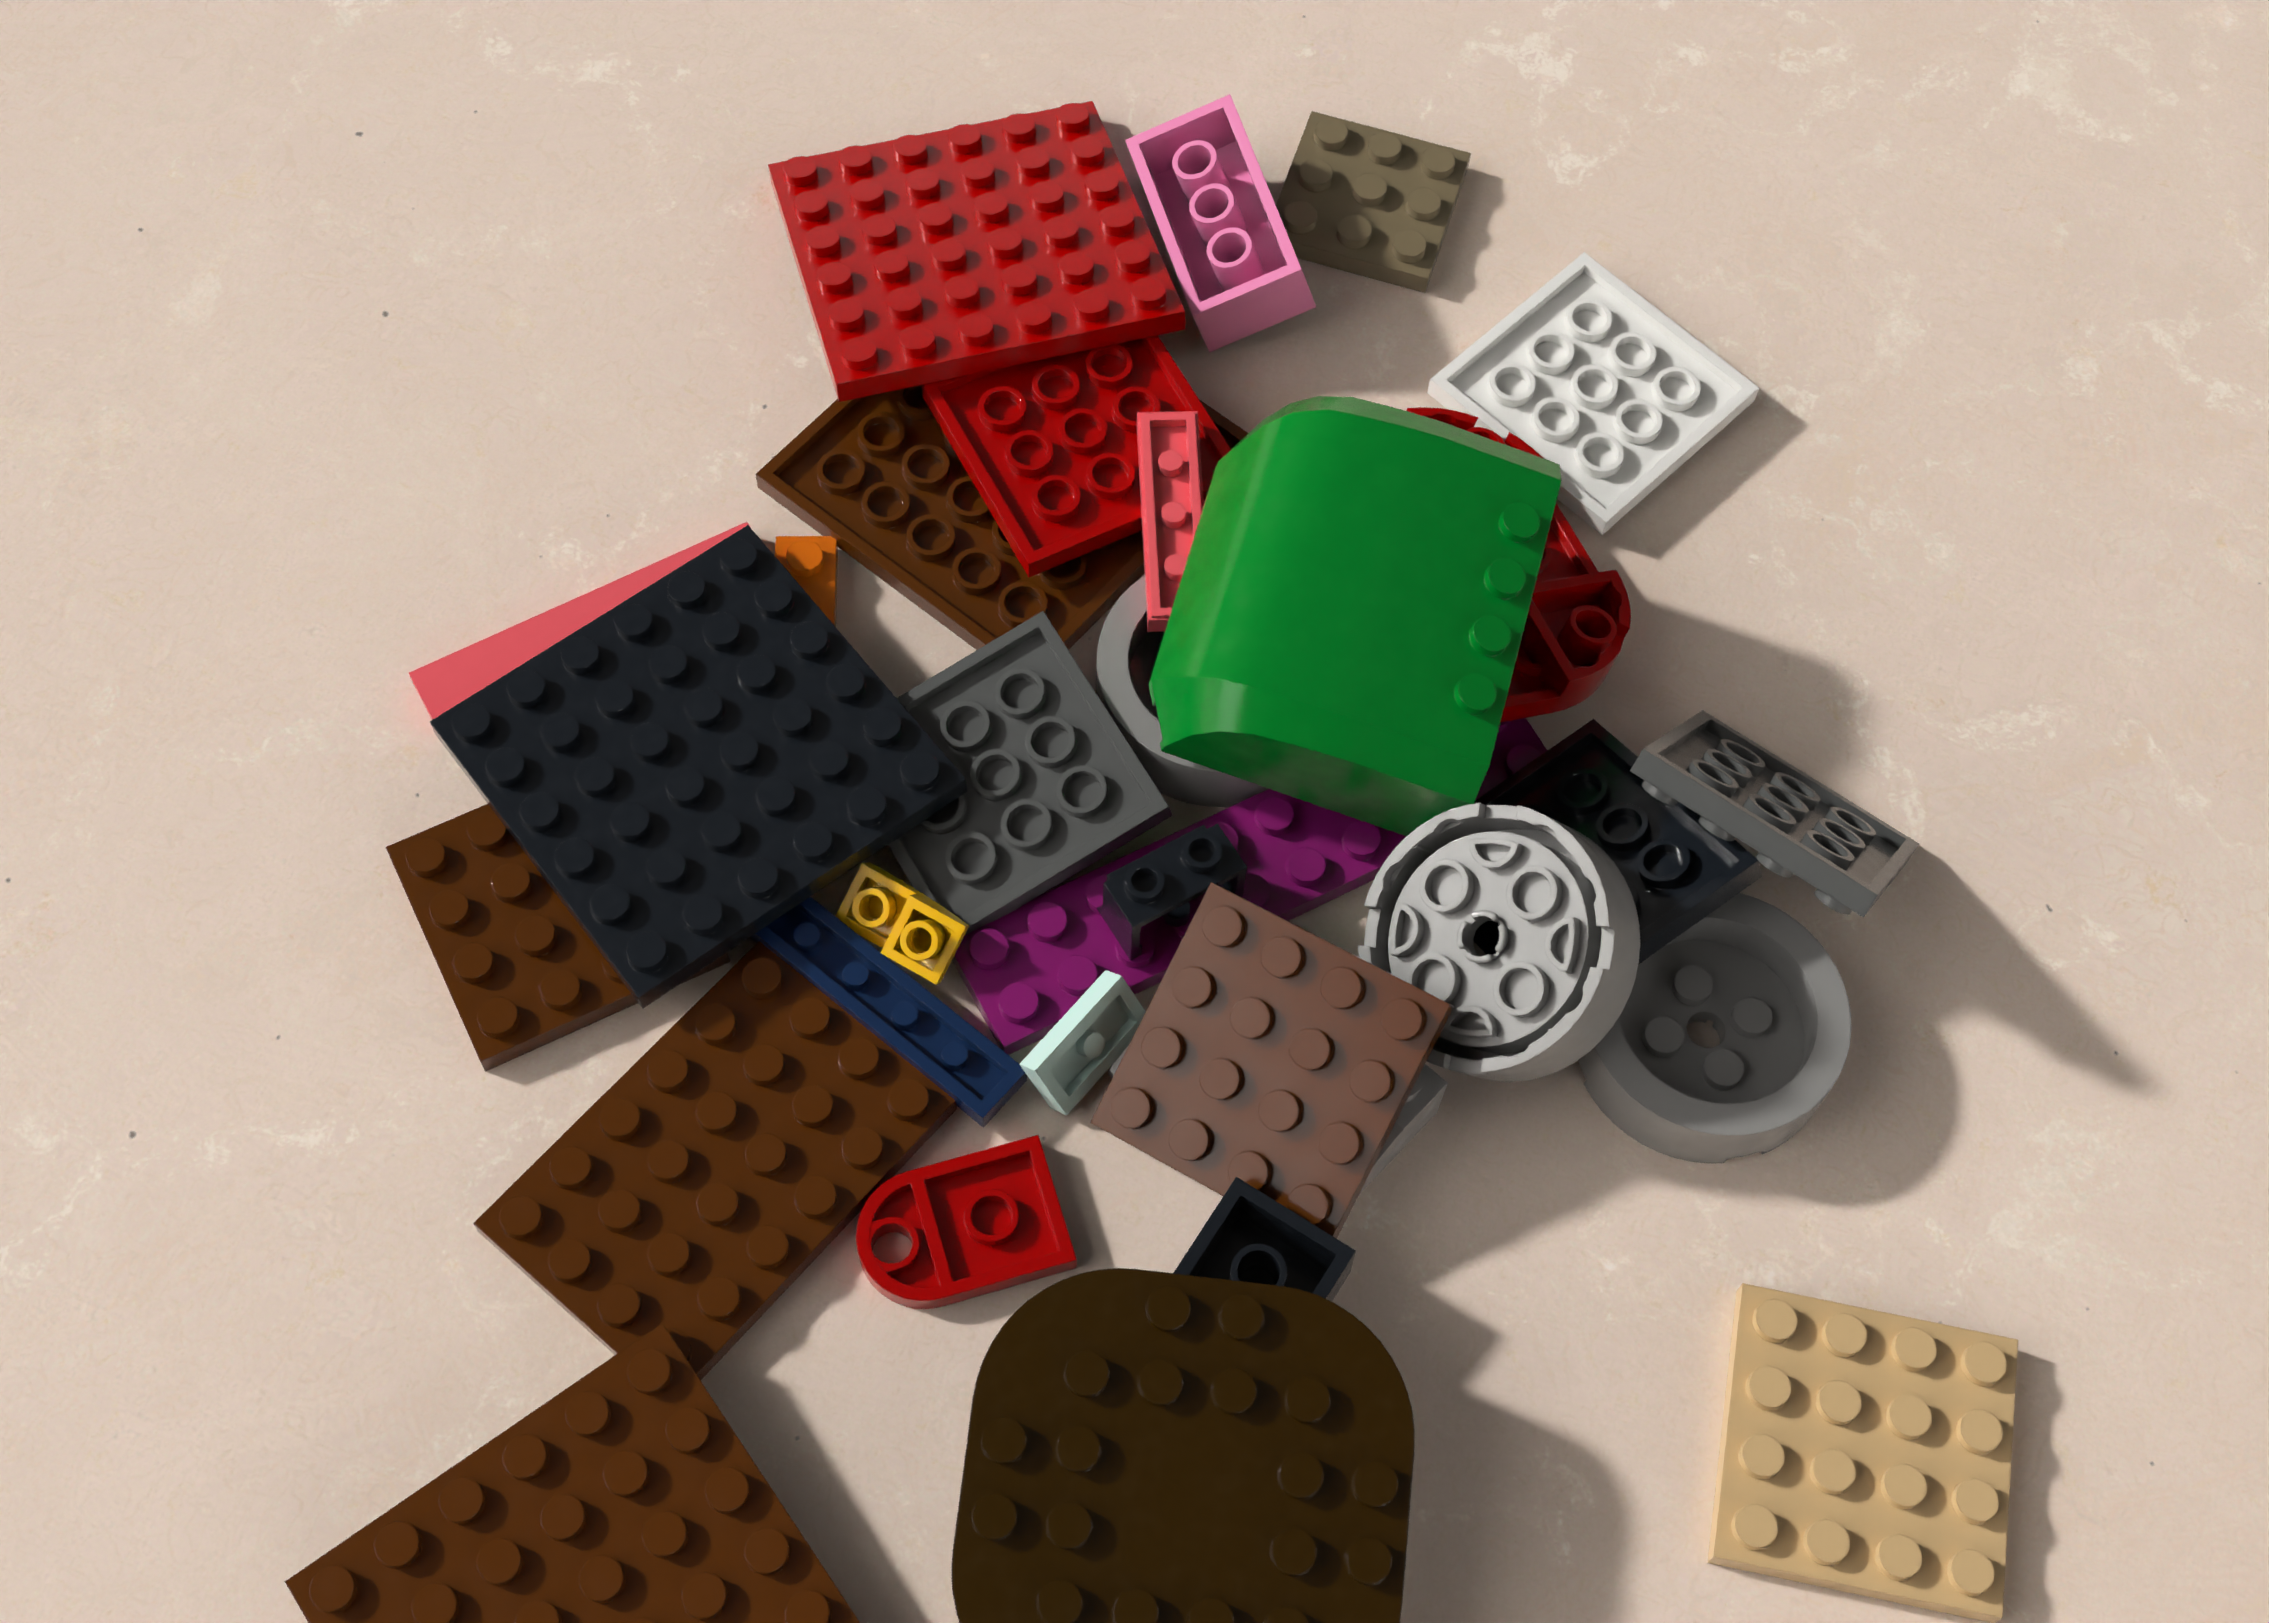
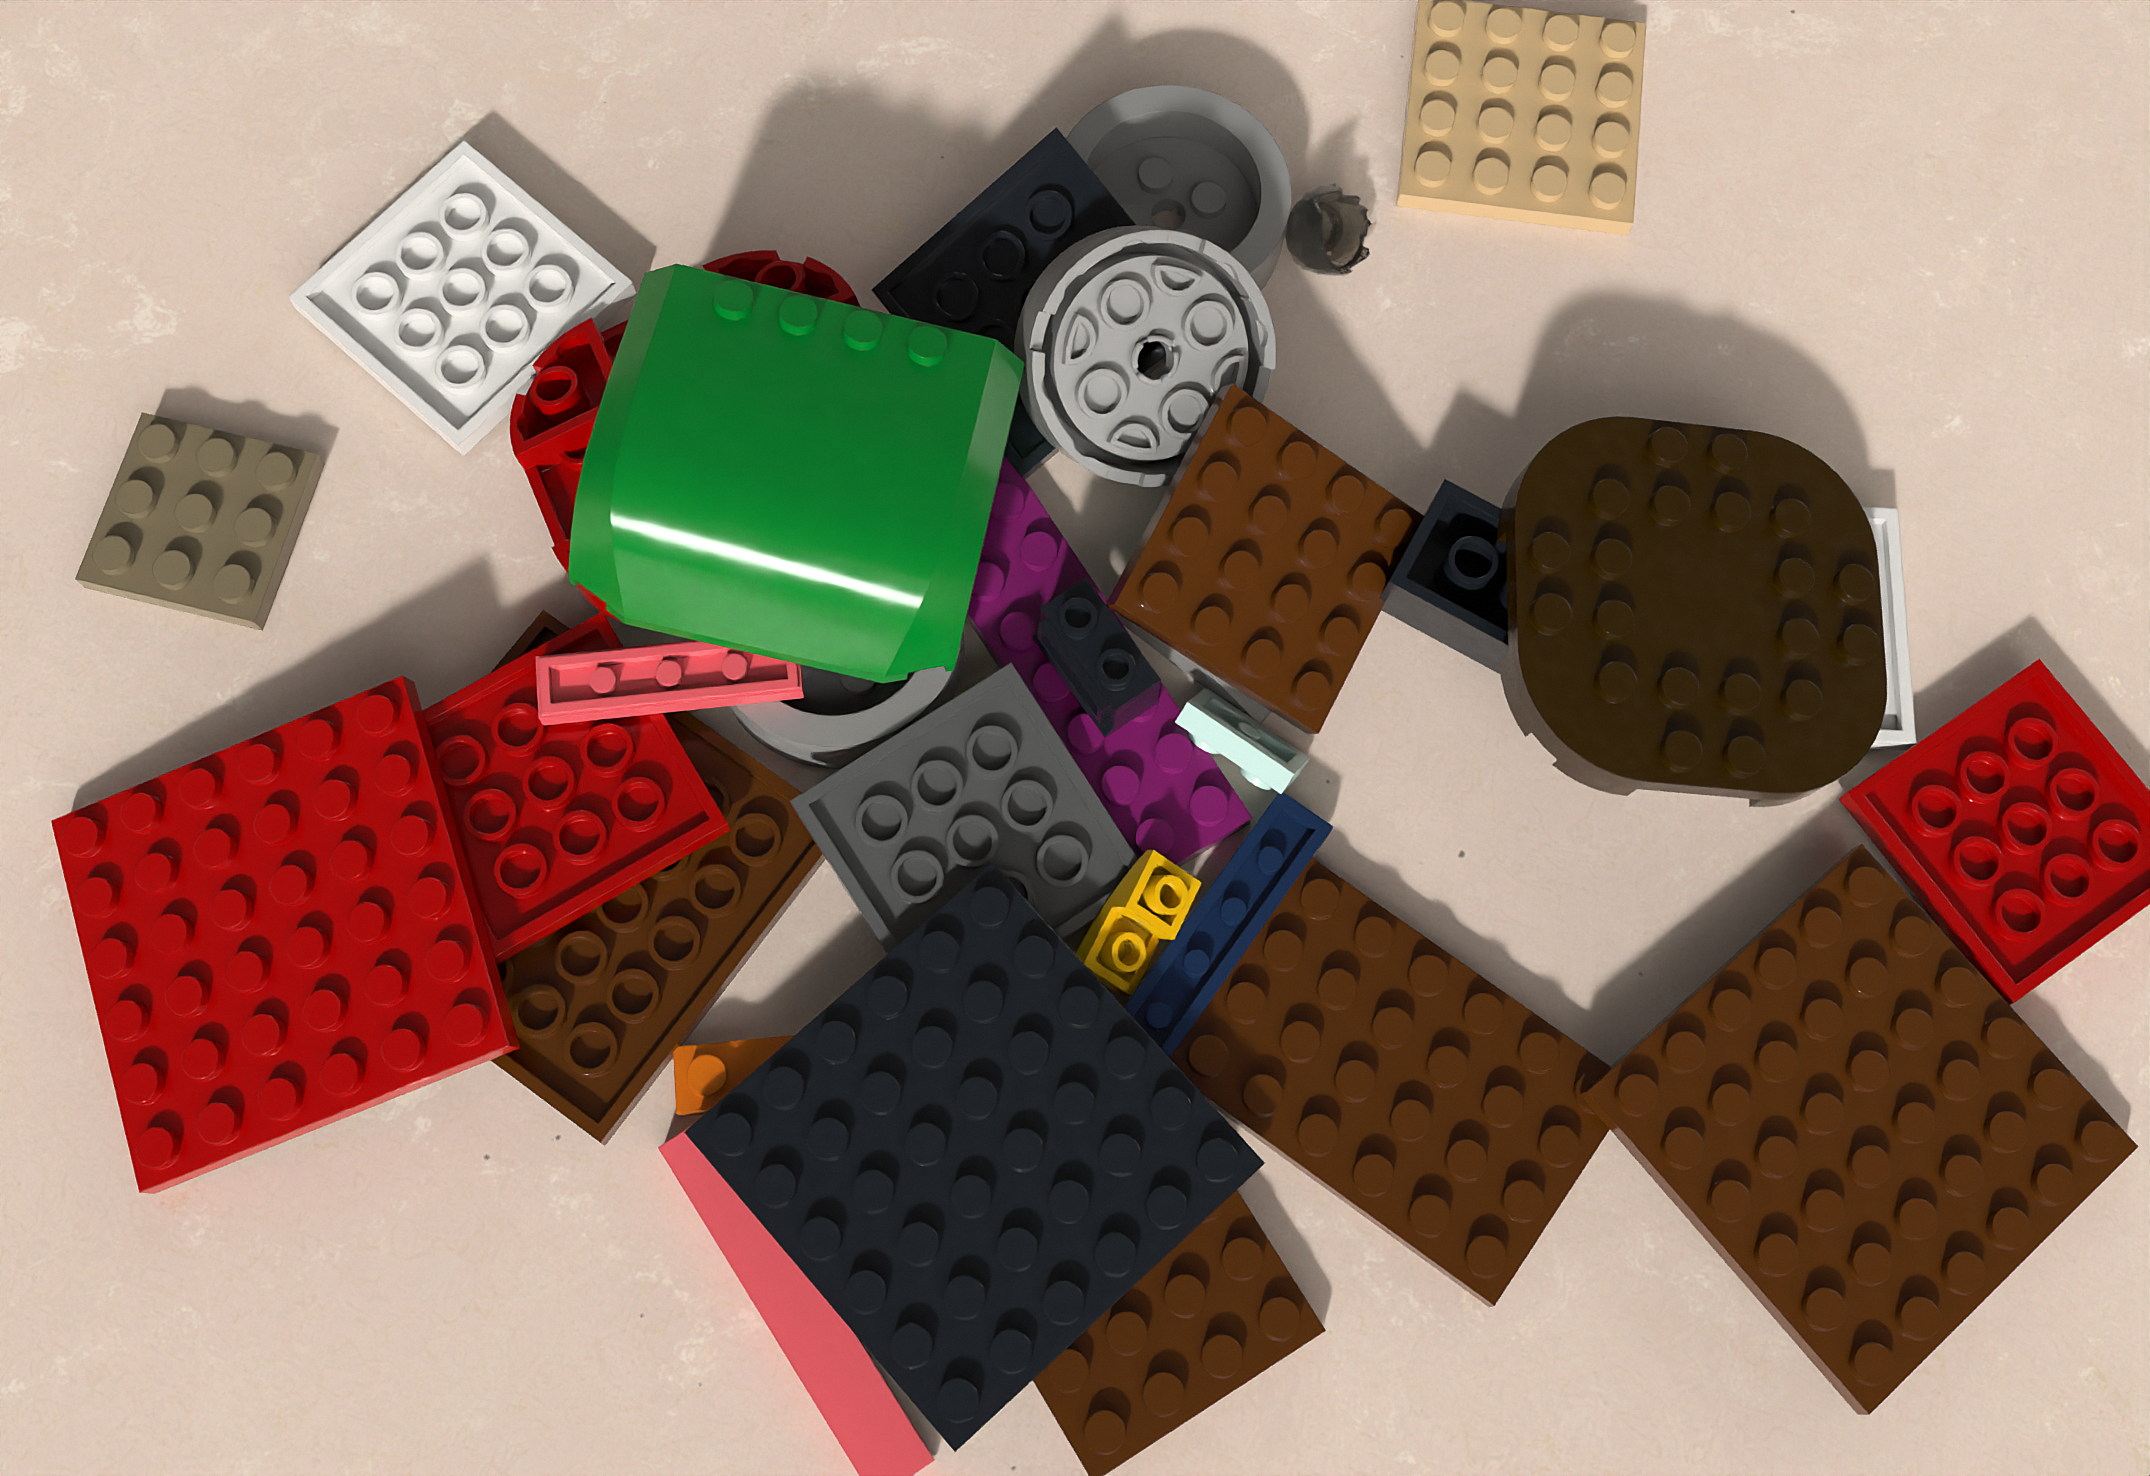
camera: 95 degrees left, 10 degrees up
(971, 1227) = (1428, 835): red tile -> none
(1220, 224) = (251, 657): bright pink brick -> none
(1683, 1190) = (1327, 231): none -> clear smoke hair
(1776, 811) = (978, 126): dark grey plate -> none

